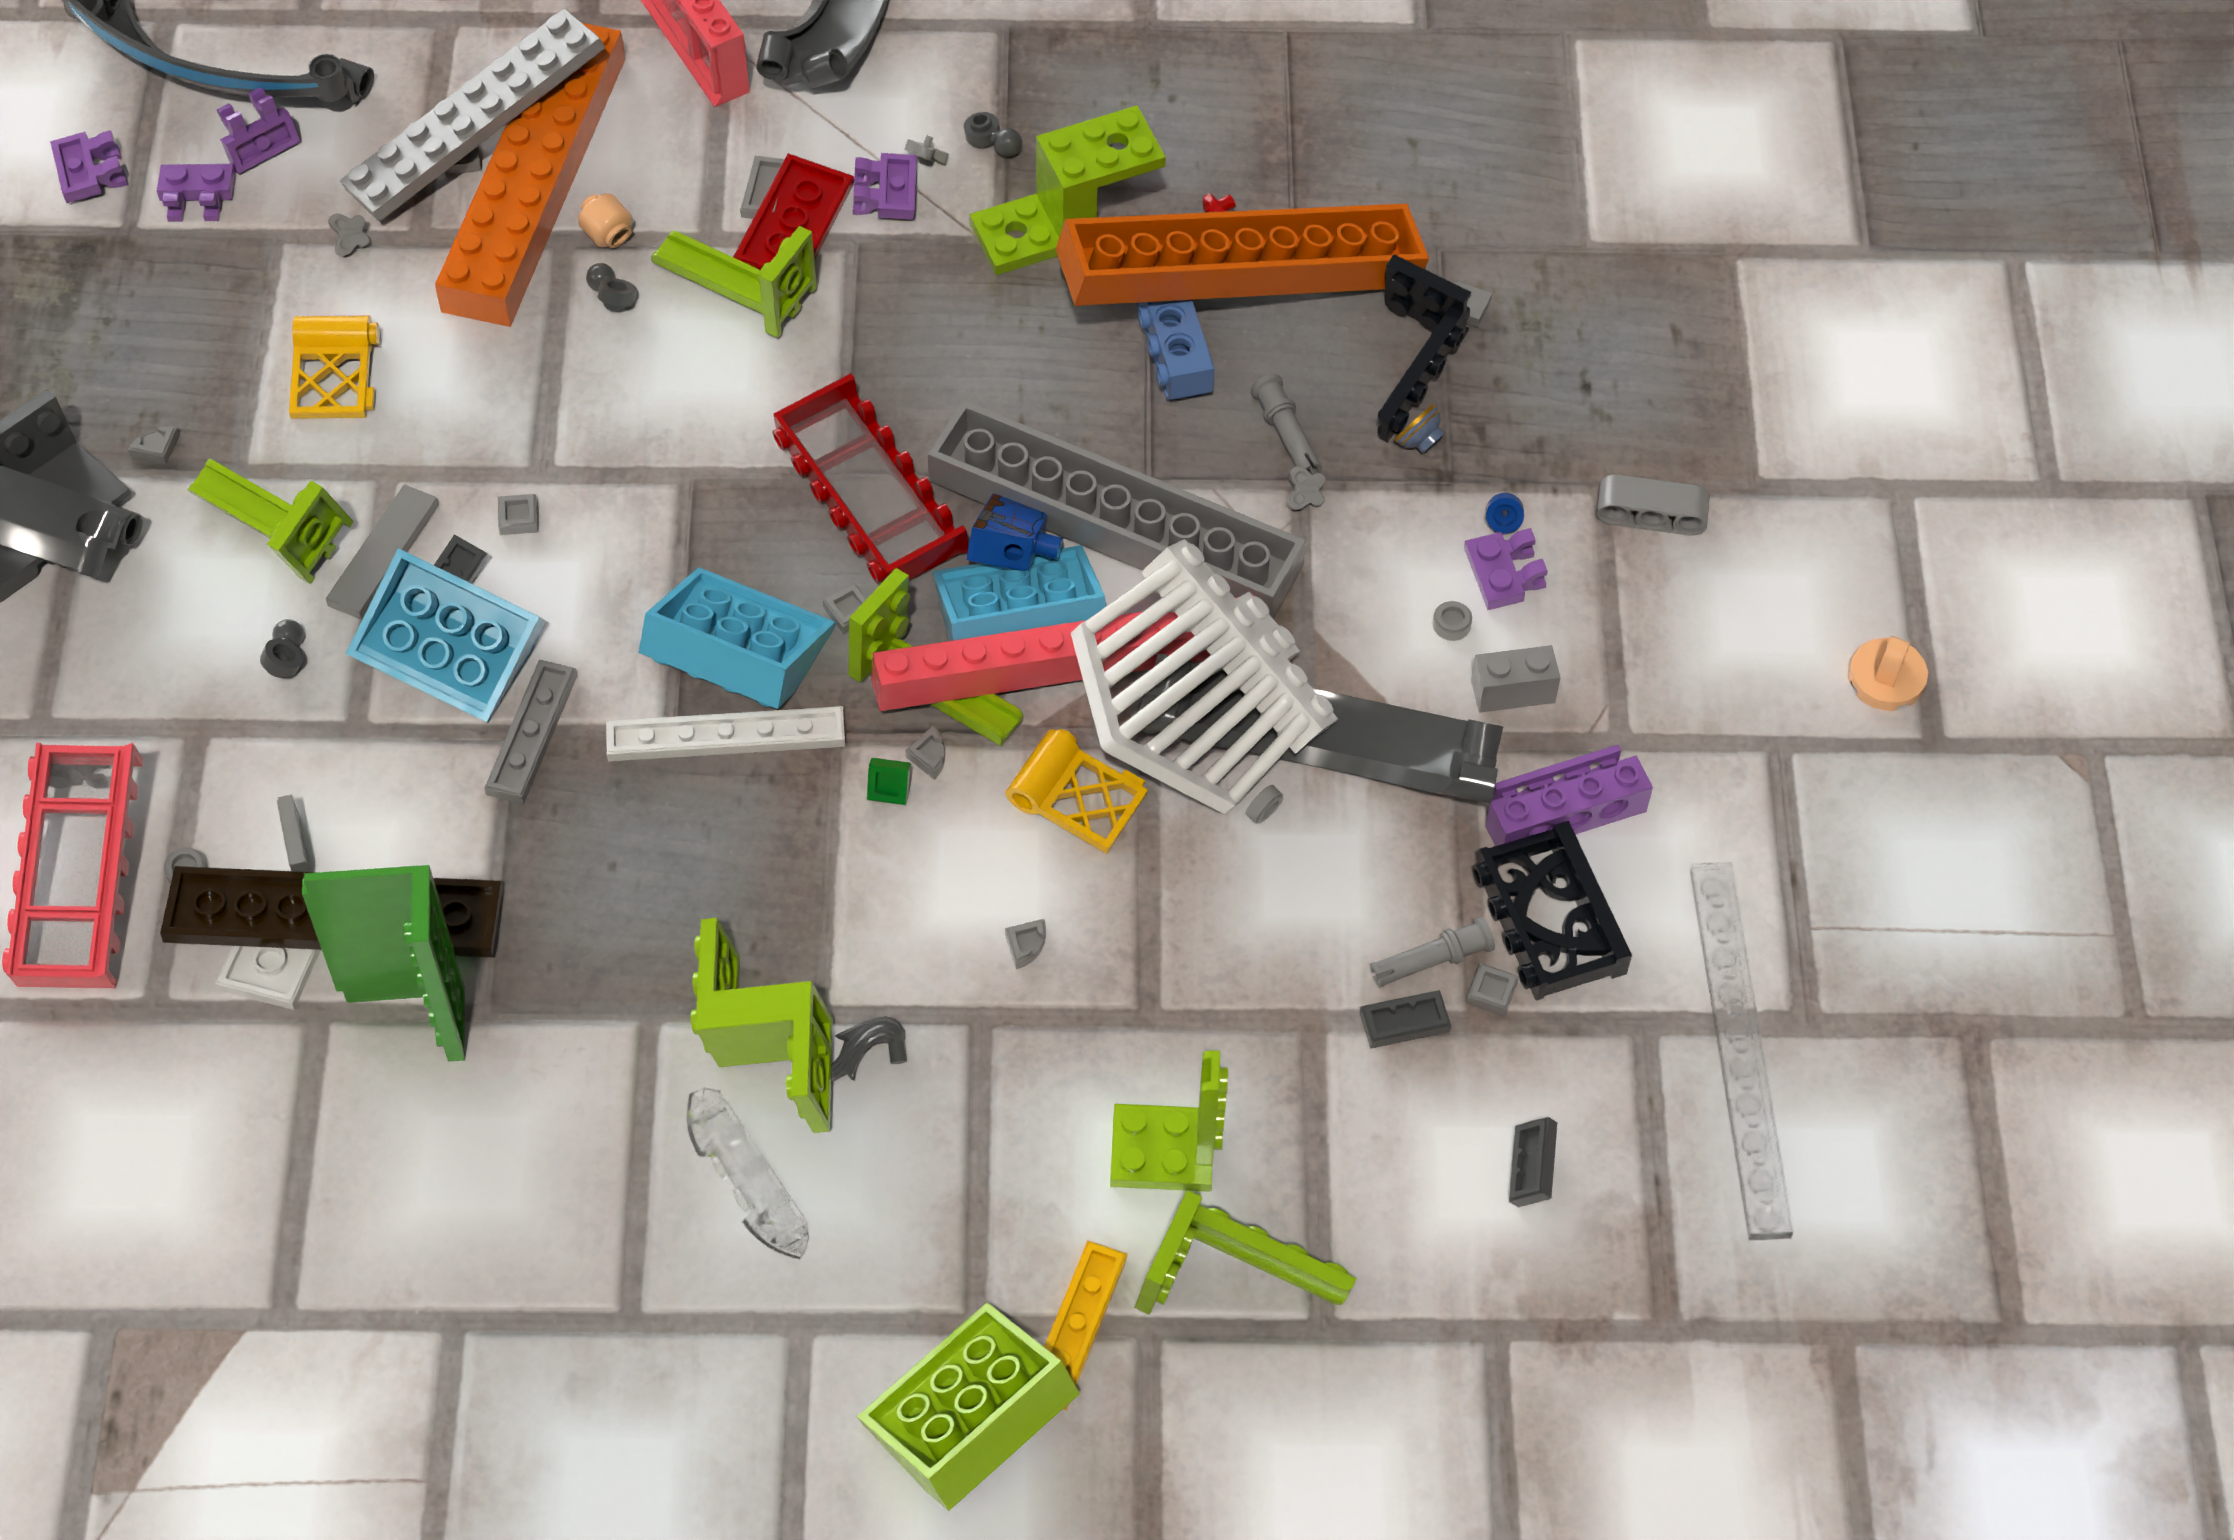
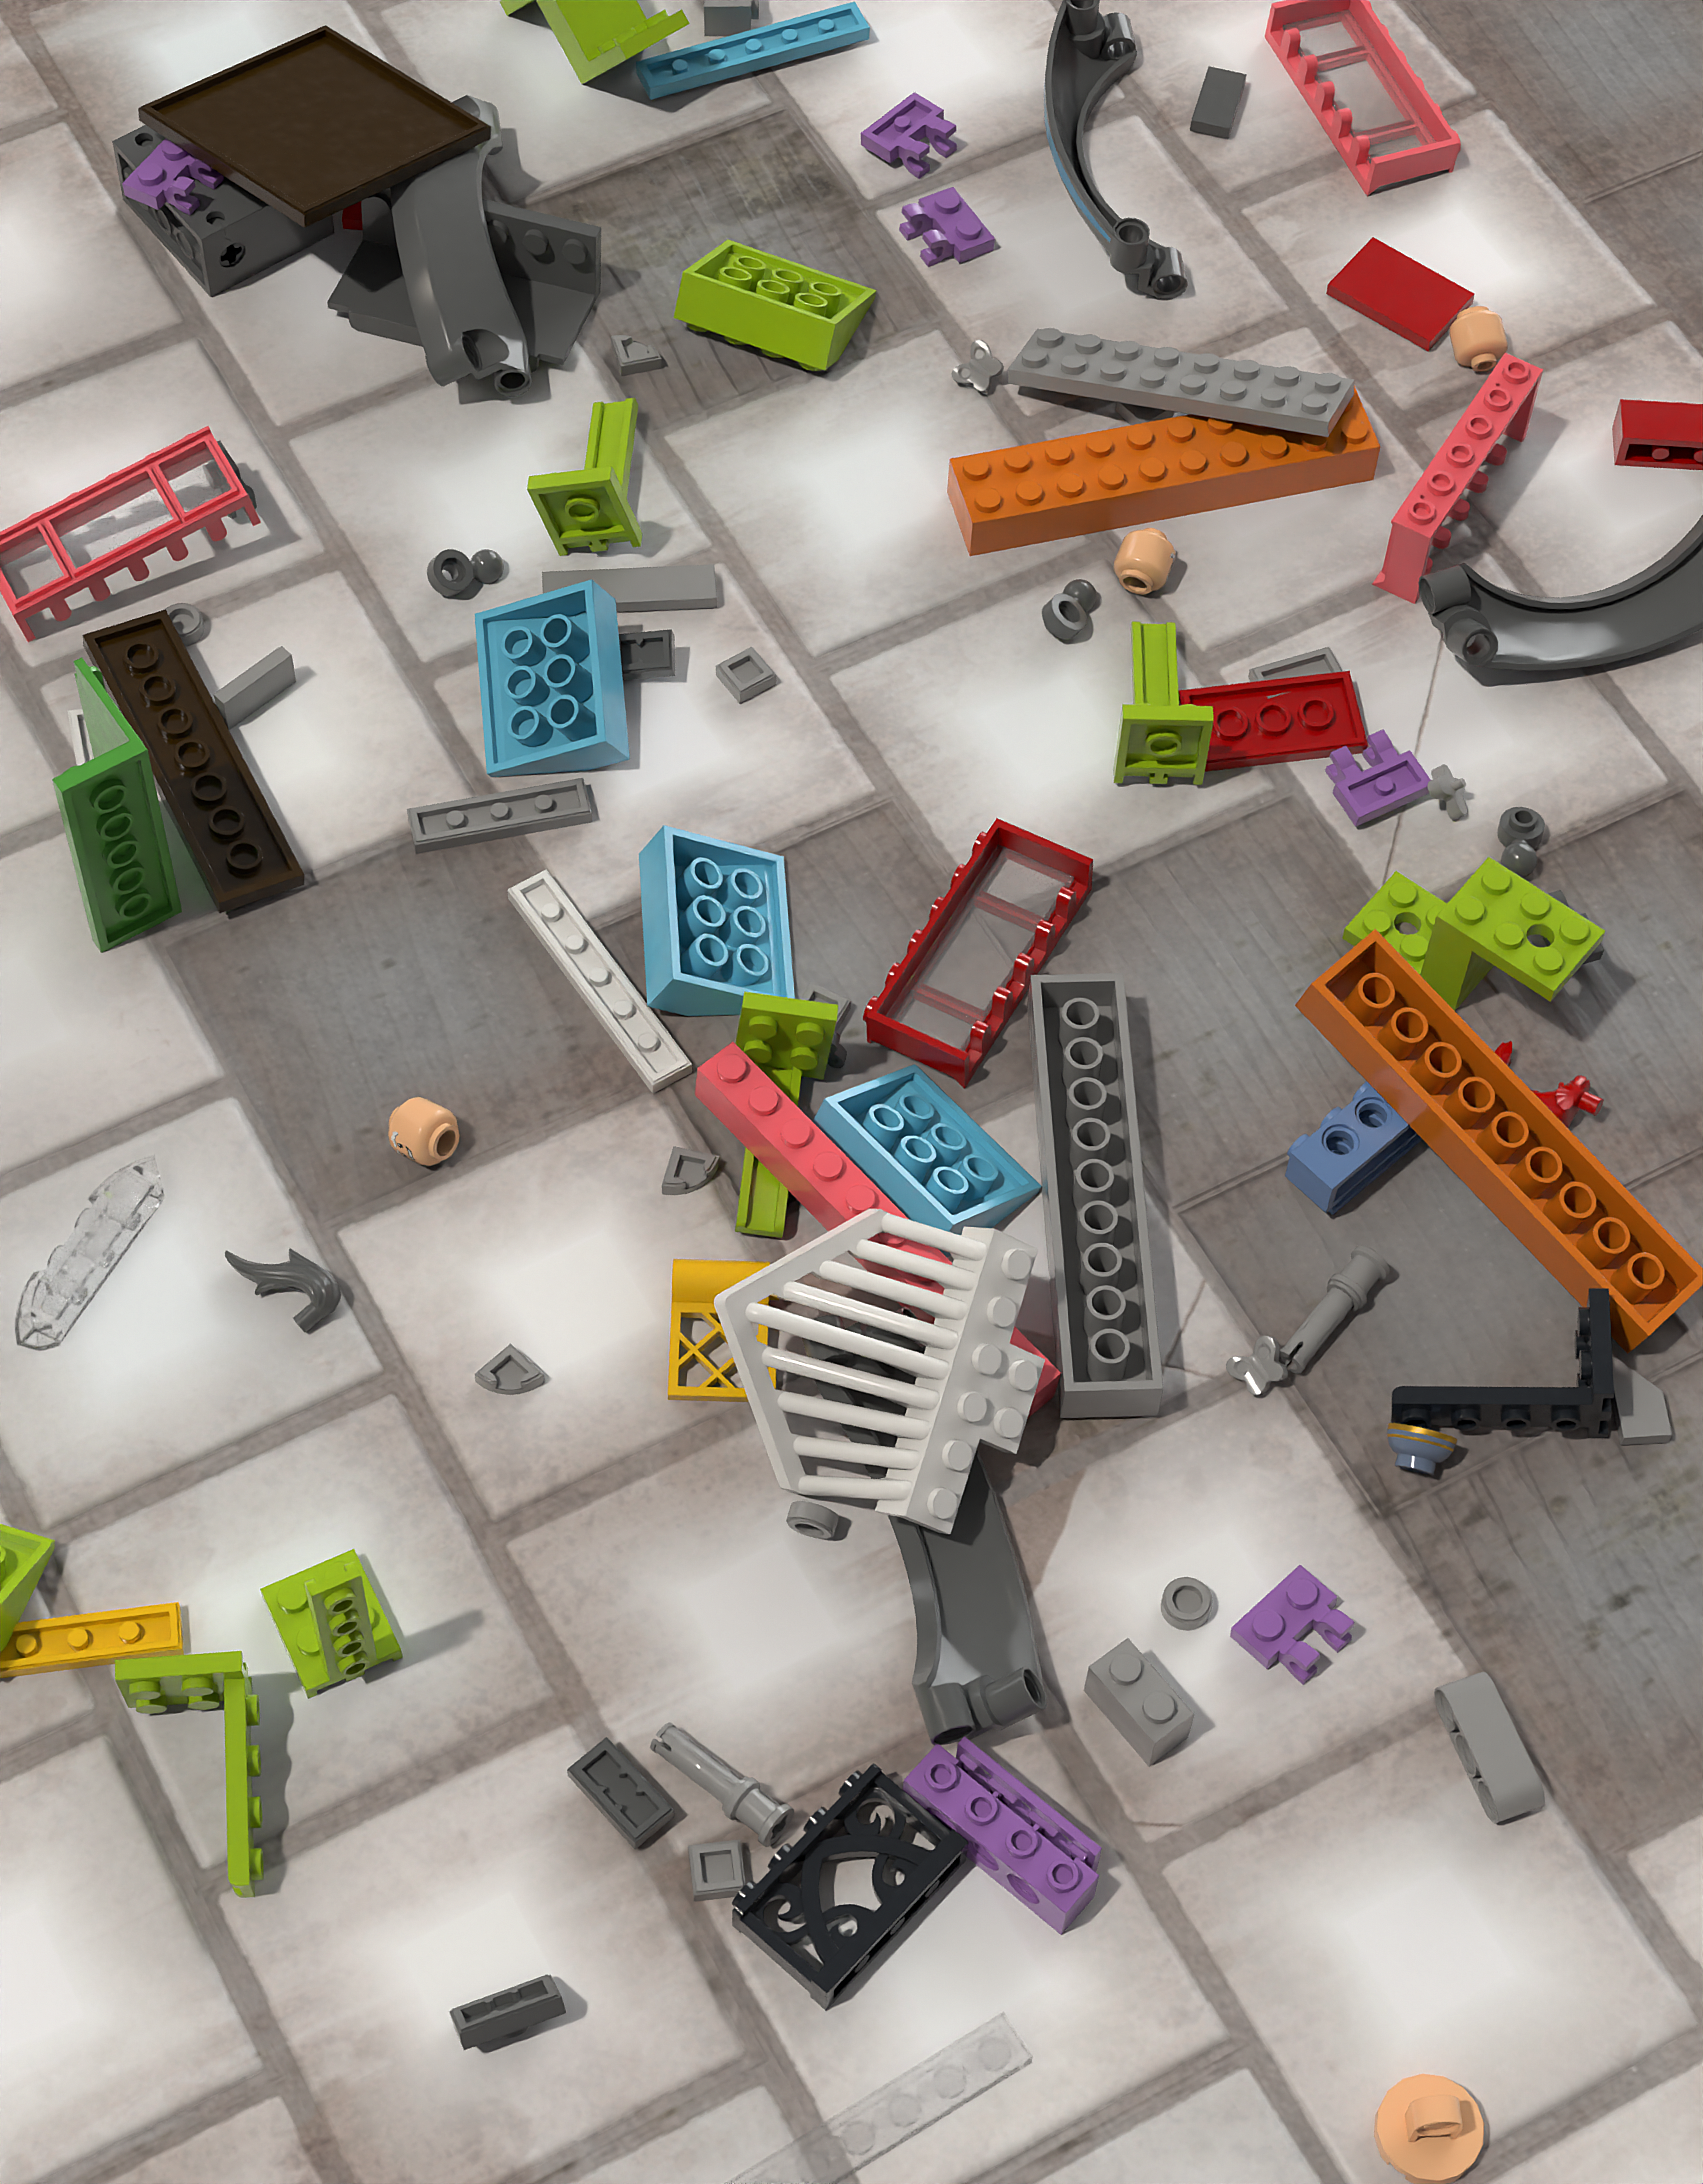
camera: 60 degrees right, 0 degrees up
(185, 329) = (772, 304): none -> lime slope
(260, 139) = (1036, 242): medium lavender plate -> none
(334, 340) = (844, 423): yellow piece -> none
(763, 1024) = (257, 1200): lime bracket -> none
(789, 902) = (423, 1131): none -> light nougat head
(888, 781) = (624, 1148): green tile -> none
(1011, 535) = (991, 1105): blue torso -> none
(1505, 513) = (1364, 1588): blue tile -> none

